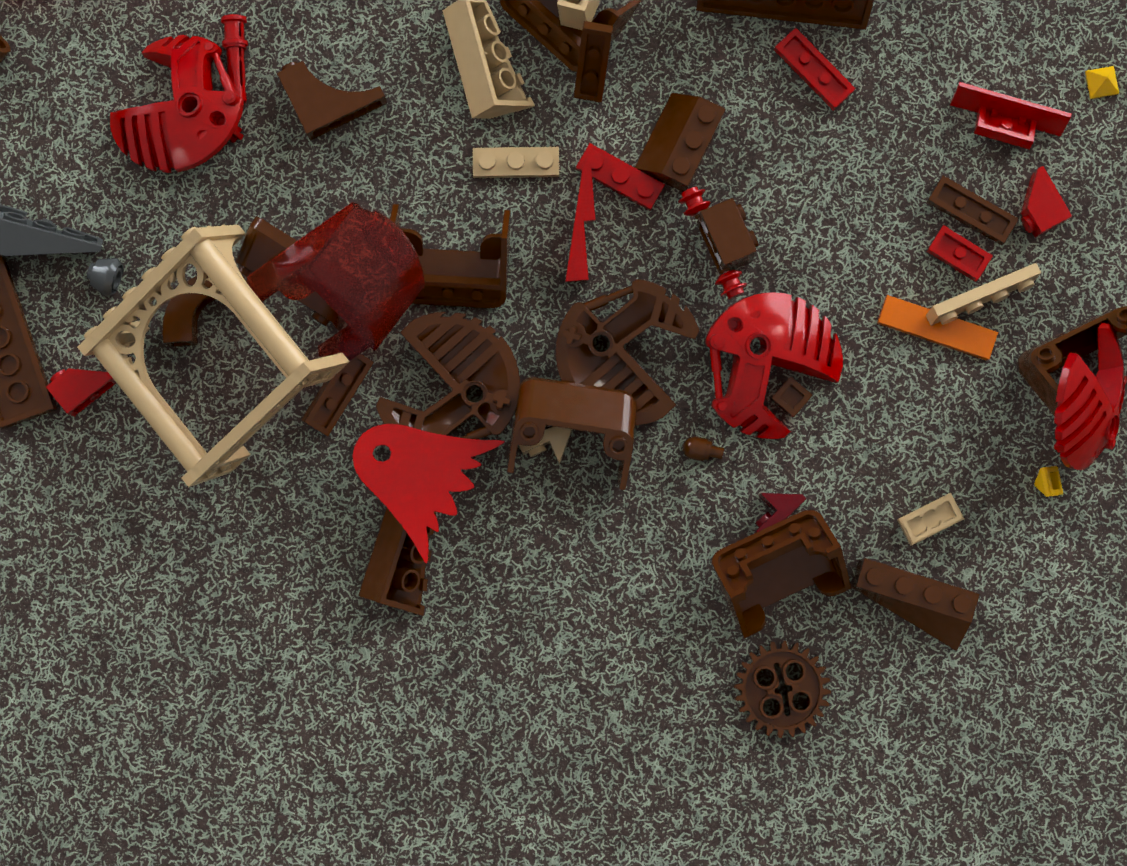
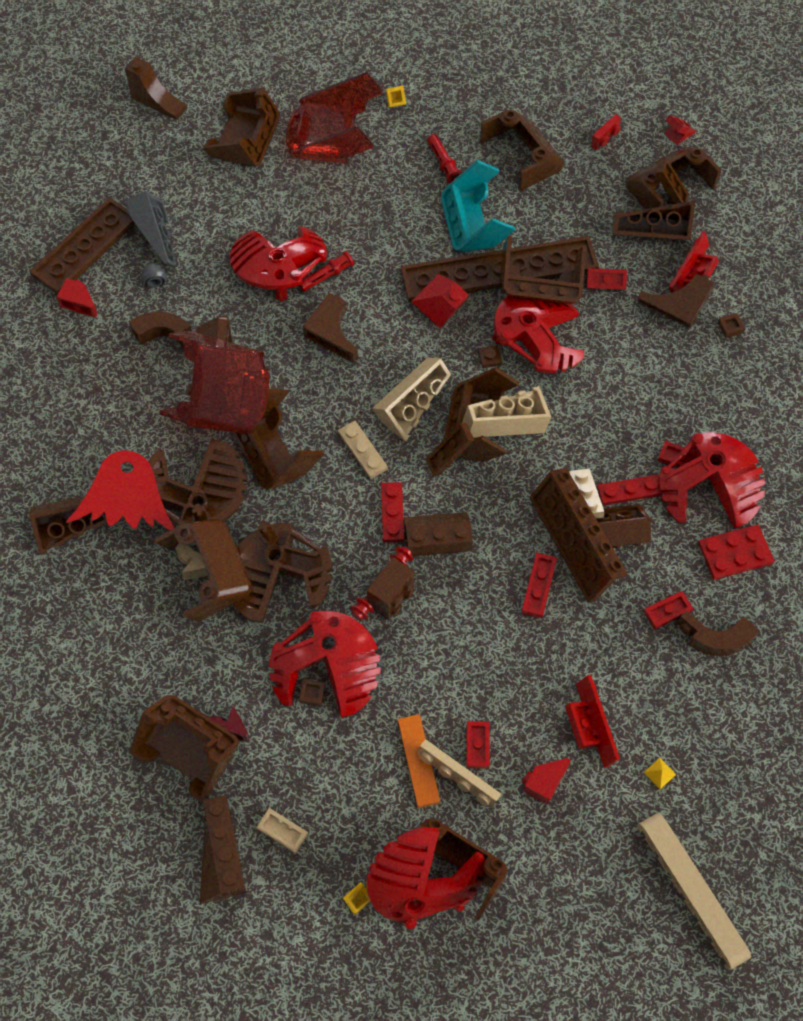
camera: 55 degrees right, 20 degrees down
(118, 335) = (112, 289): tan arch -> none
(336, 395) = (154, 429): reddish brown plate -> none
(585, 212) = (354, 499): red slope -> none
(701, 449) = (244, 657): reddish brown cylinder -> none
(808, 682) = (120, 812): reddish brown gear -> none
(972, 210) = (512, 736): reddish brown plate -> none

